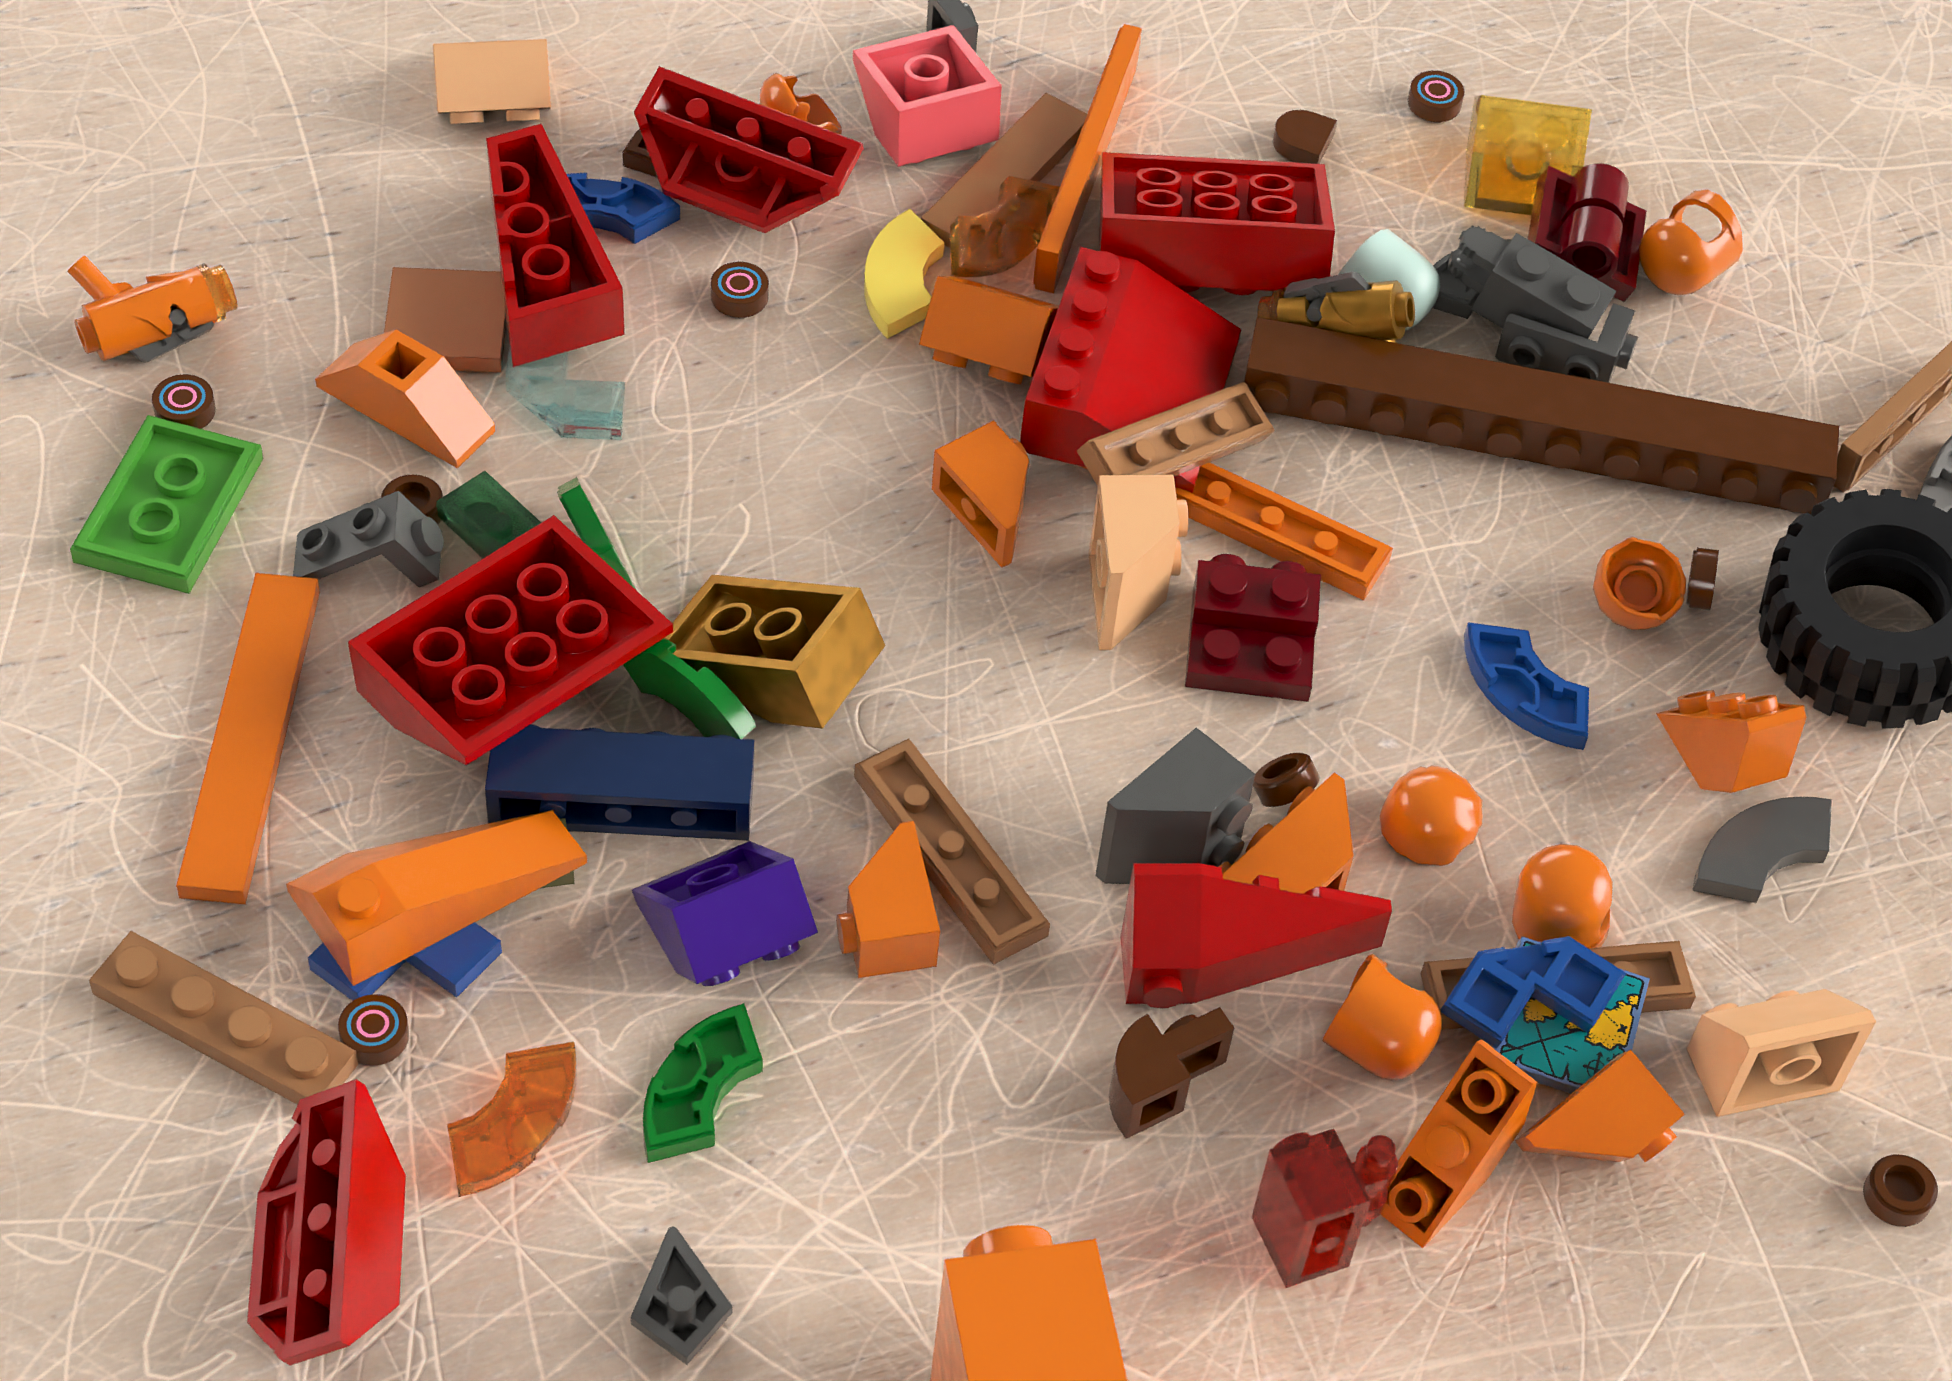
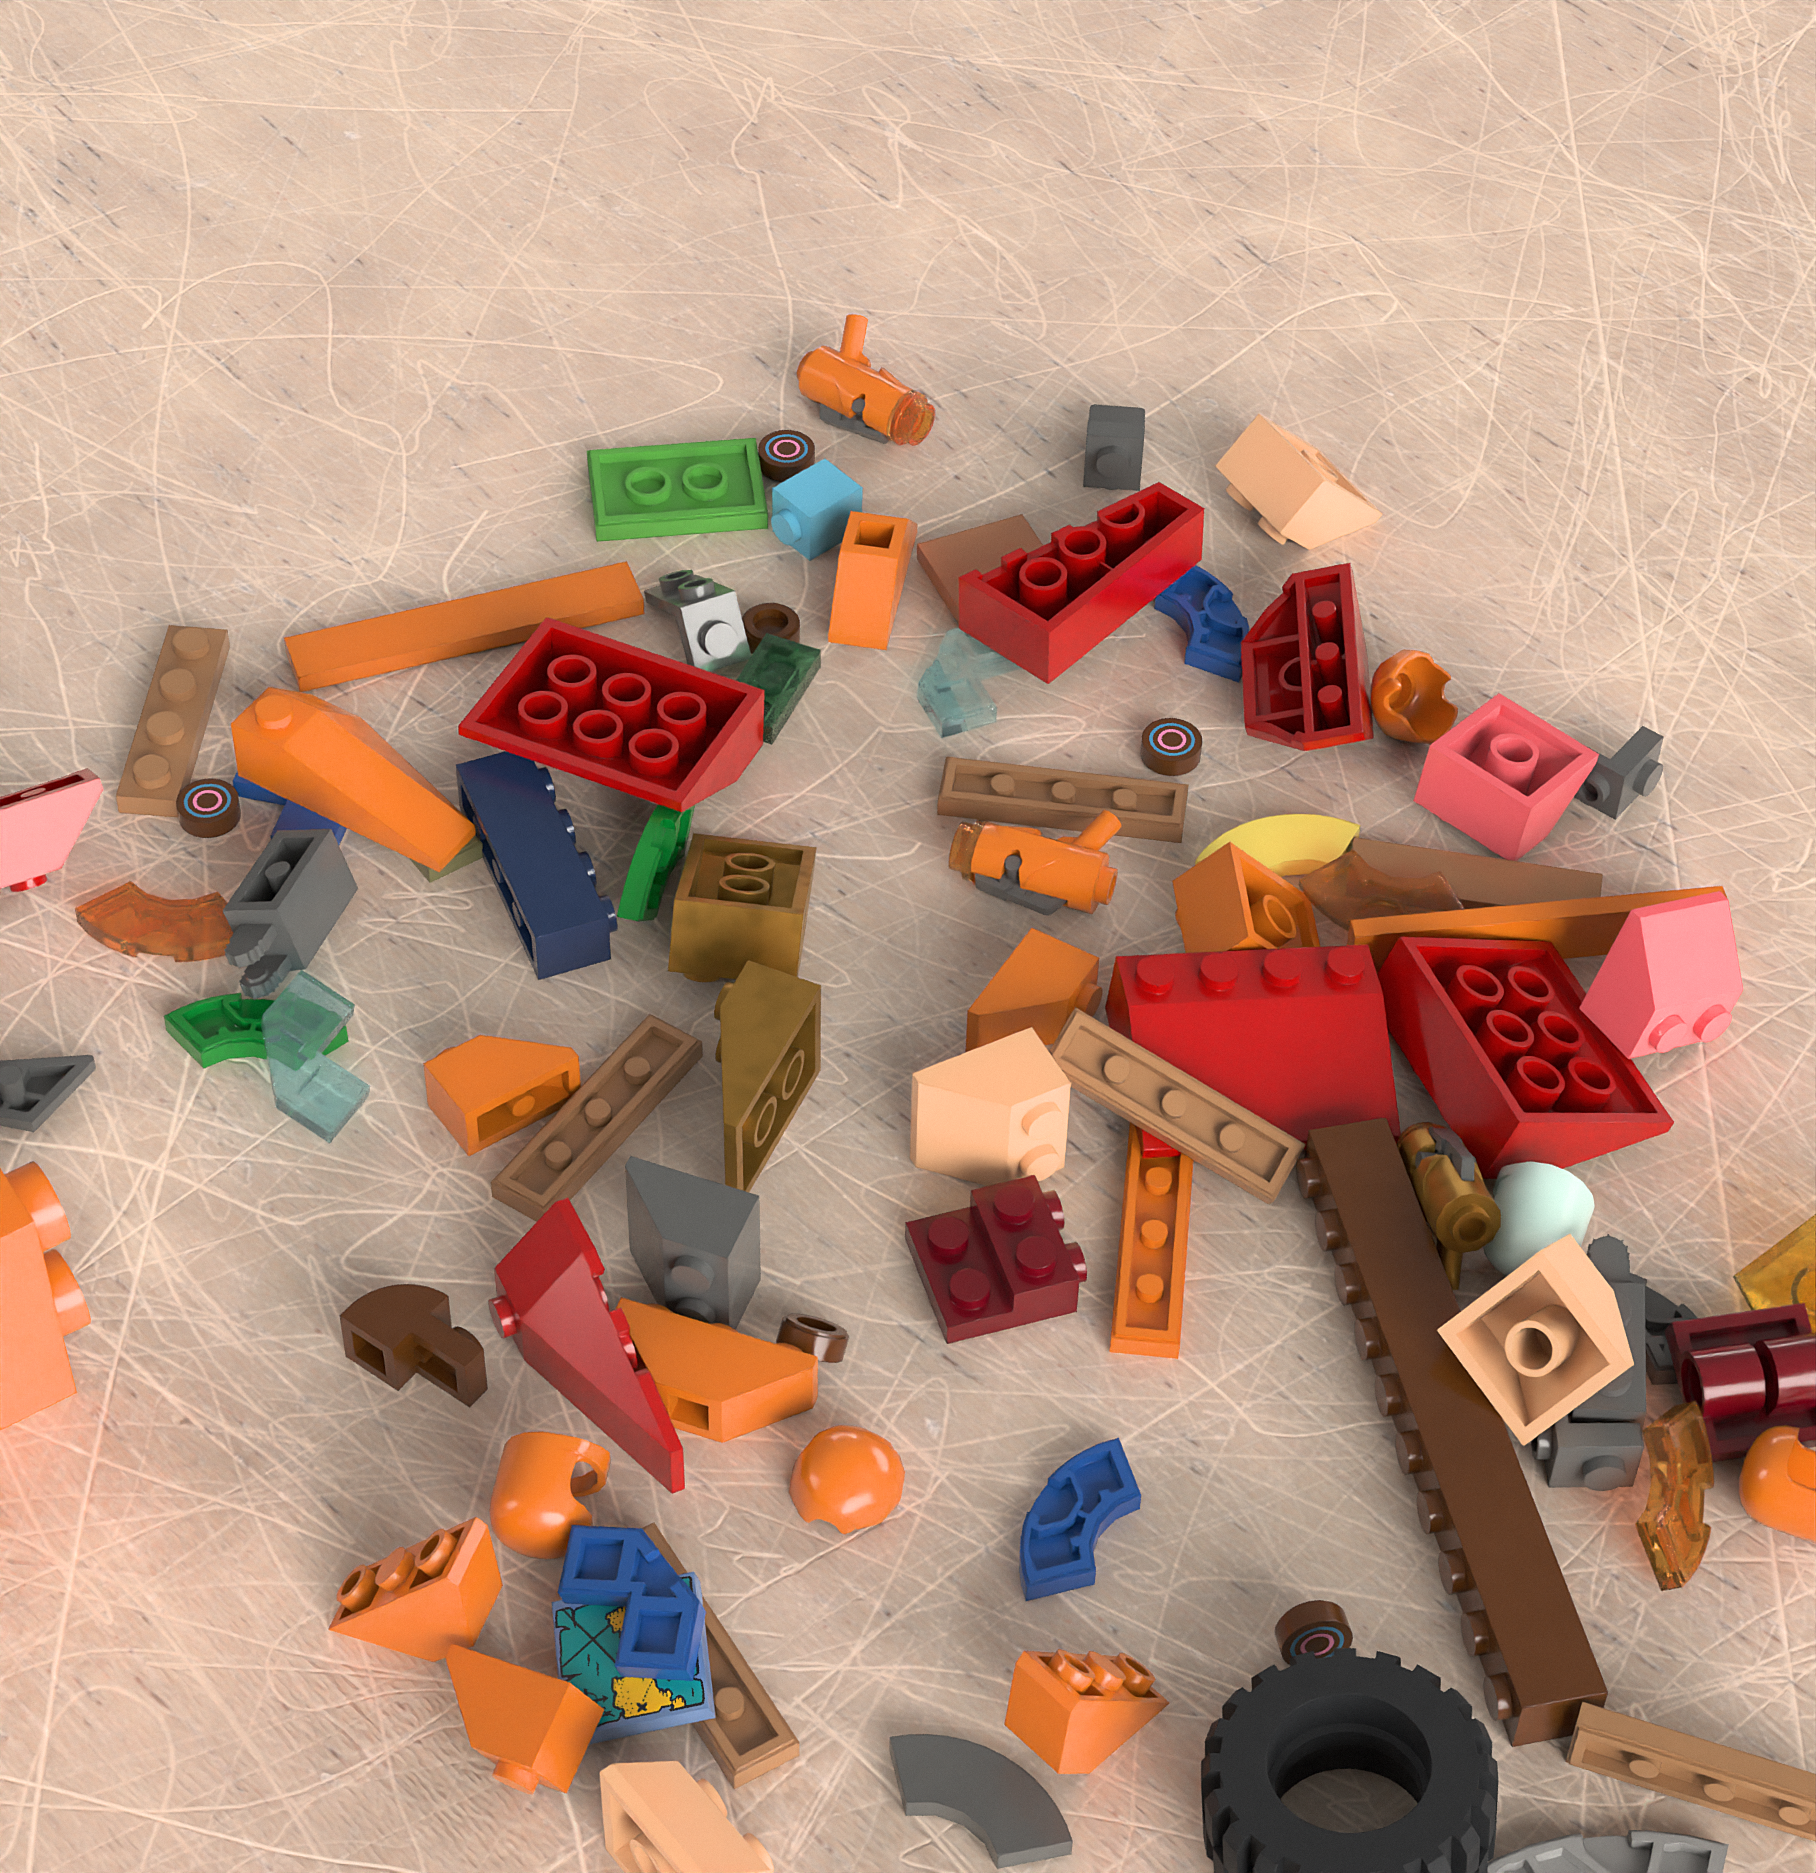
camera: 70 degrees right, 5 degrees down
(289, 404) = (814, 508): none -> medium azure brick
(359, 177) = (1114, 447): none -> dark grey bracket
(588, 992) = (287, 907): none -> dark grey hinge
(589, 525) = (789, 754): green tile -> none
(727, 912) = (428, 976): dark purple slope -> none
(748, 1042) = (303, 1079): none -> clear light blue tile
(754, 387) = (1061, 798): none -> medium nougat tile
(844, 430) = (1035, 869): none -> orange piece
(1008, 702) = (767, 1063): none -> pearl gold slope
(1207, 99) = (1668, 977): none -> slope
(1303, 136) = (1721, 1104): reddish brown tile -> none
(1319, 1201) = (291, 1491): clear red brick -> none
(1544, 309) = (1542, 1338): none -> light nougat slope
(1563, 895) = (780, 1598): orange helmet -> none
(1639, 584) = (1254, 1566): orange hair -> none
(1669, 319) = (1674, 1511): none -> clear orange tile

